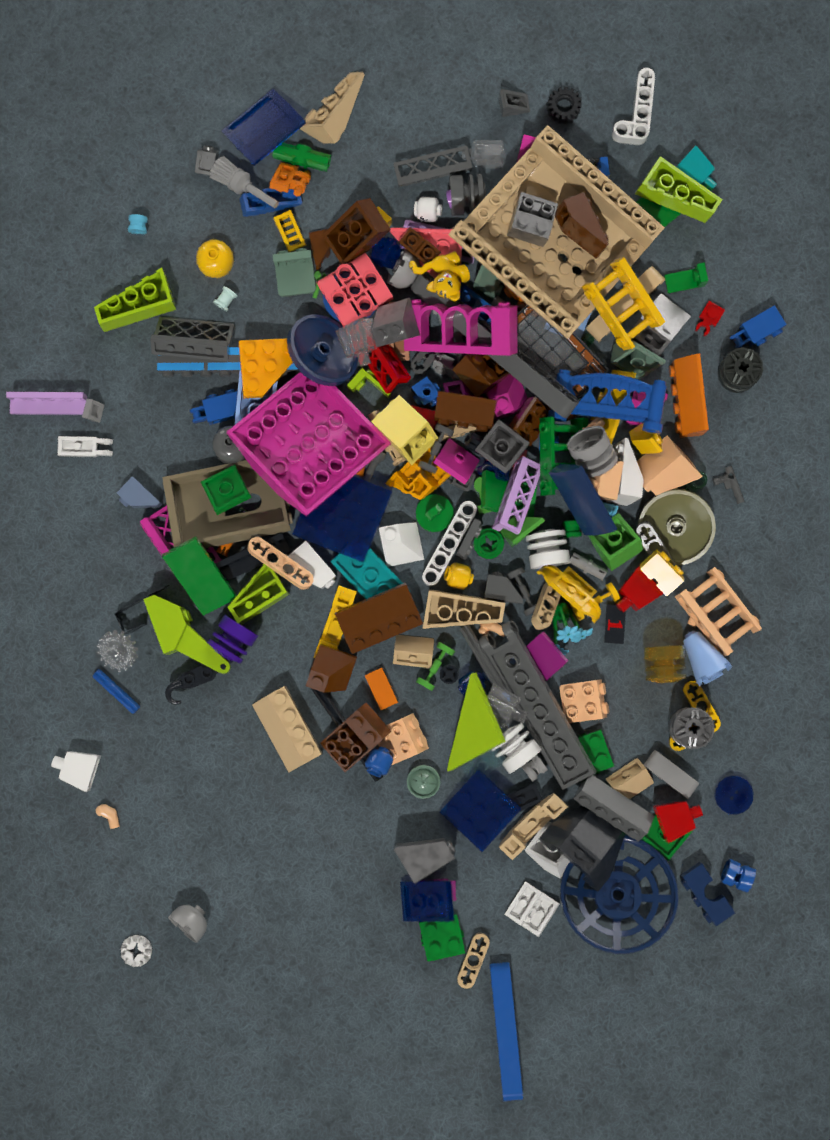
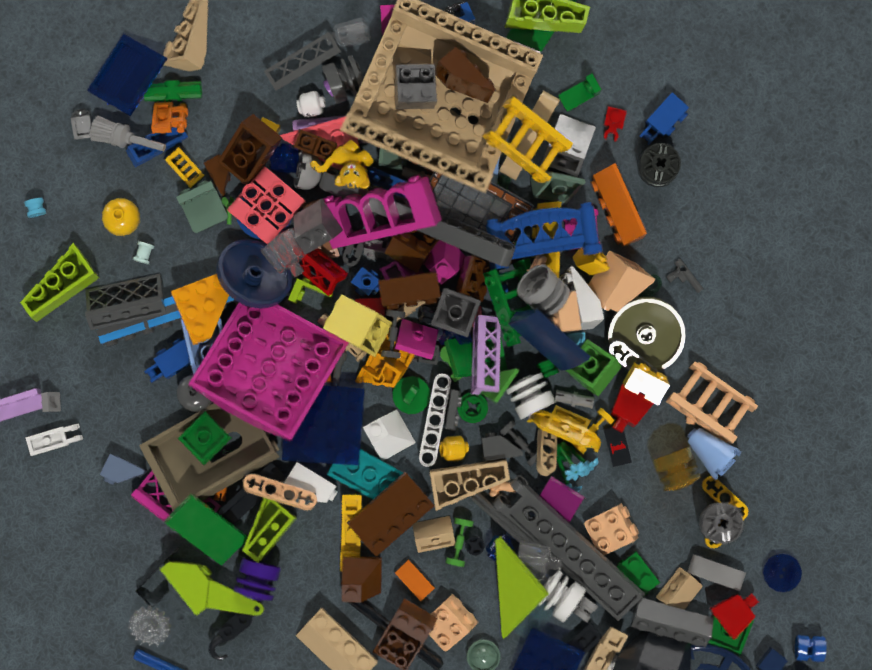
camera: 20 degrees left, 0 degrees up
(379, 761) = (435, 651): blue head -> none

